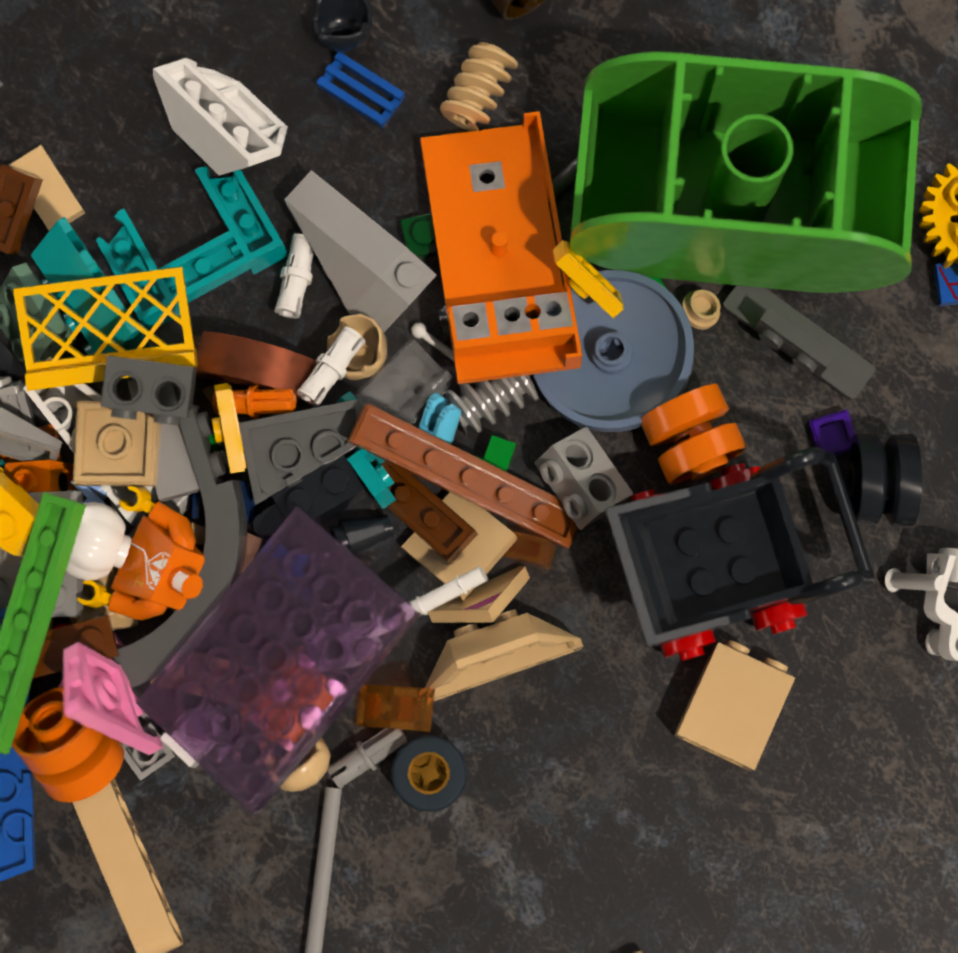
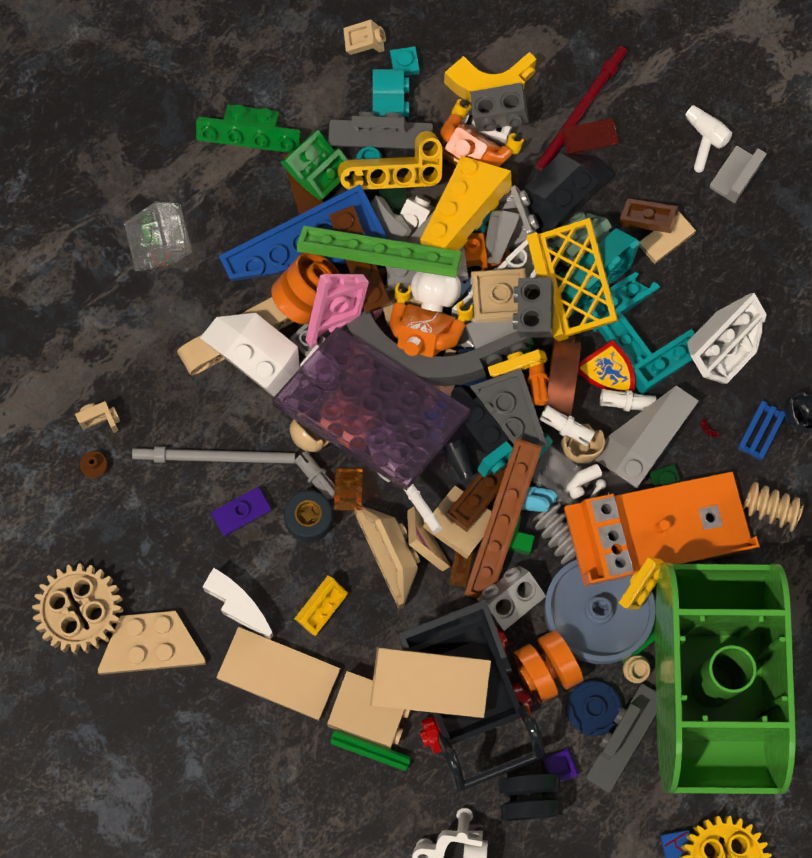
camera: 80 degrees right, 5 degrees down
(159, 836) = (254, 349): none -> white wedge
(245, 295) = (608, 368): none -> shield
(346, 171) = (712, 433): none -> dark red leg
(410, 878) = (241, 511): none -> dark purple plate
(413, 353) = (582, 477): none -> white arm
(558, 893) = (237, 603): none -> white slope
(570, 765) = (321, 605): none -> yellow plate
(666, 840) = (278, 673): none -> tan tile
(722, 605) = (430, 682): none -> tan tile
(752, 377) = (593, 708): none -> dark blue tile
(792, 710) = (370, 750): none -> green axle

